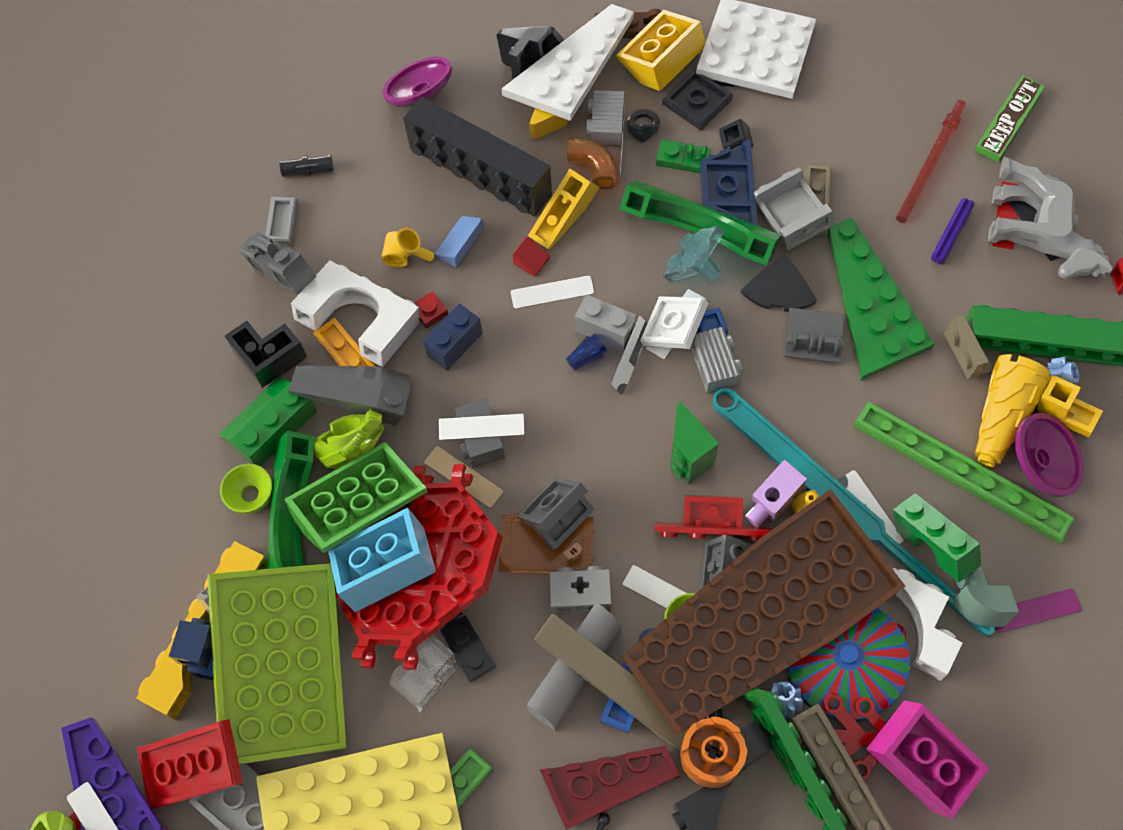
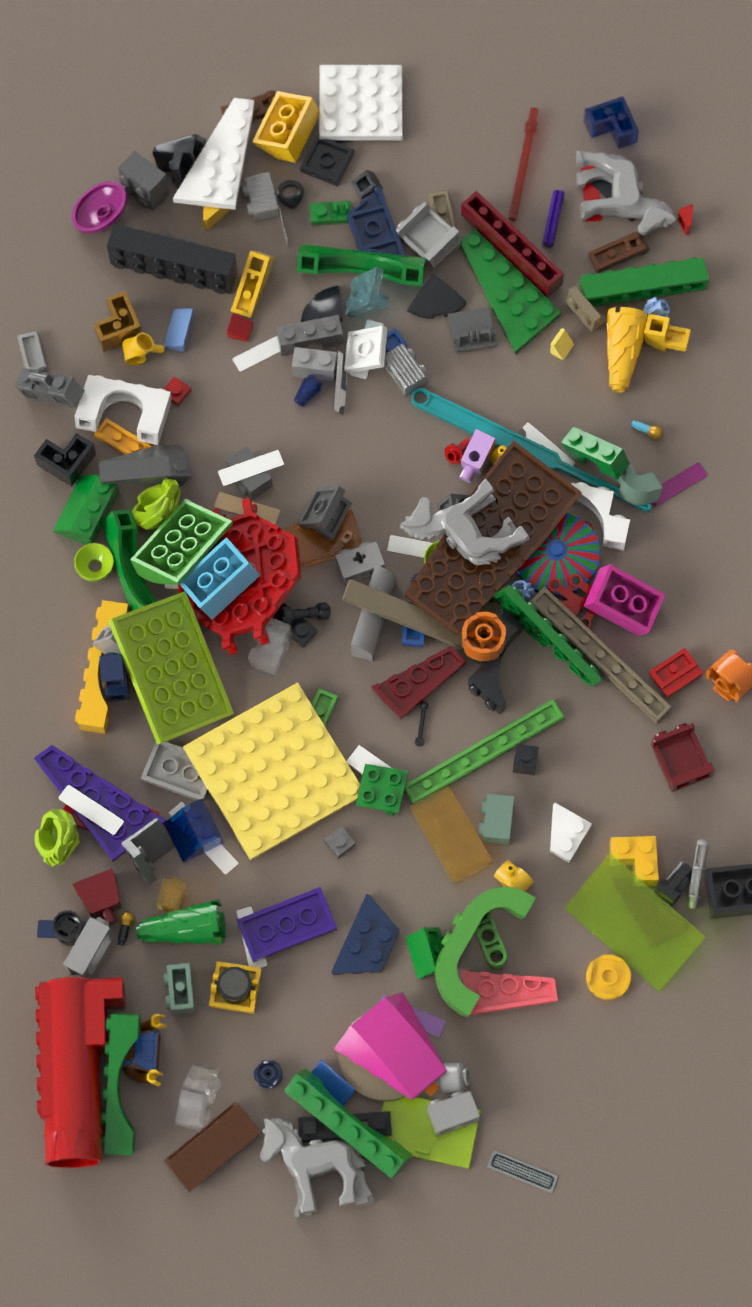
camera: 20 degrees left, 5 degrees up
(190, 764) = (136, 750): red tile -> none
(288, 167) = (20, 307): black pin -> none
(388, 215) = (120, 325): none -> pearl gold brick
(453, 337) = (203, 407): dark blue brick -> none
(459, 634) = (320, 611): none -> black piece
(476, 64) = (143, 181): none -> dark grey brick
(596, 158) = (265, 234): clear orange cylinder -> none
(628, 285) = (322, 330): none -> flat silver arch
(637, 262) = (323, 305): none -> black brick
(692, 446) = (407, 438): green slope -> none
(711, 516) = (436, 484): red bracket -> none
(727, 592) = (461, 528): none -> light grey animal
(747, 483) = (455, 453): none -> red plate
(895, 246) = (512, 244): none -> dark red brick
(924, 384) = (561, 344): none -> light yellow slope
(964, 472) = (603, 401): bright green tile -> none
(1009, 118) = (574, 111): tile -> none
(1021, 531) = (654, 432): none -> piece
(1026, 290) = (618, 251): none -> reddish brown plate
(1049, 455) = (660, 372): magenta dish -> none
(1058, 133) = (614, 118): none -> clear blue brick

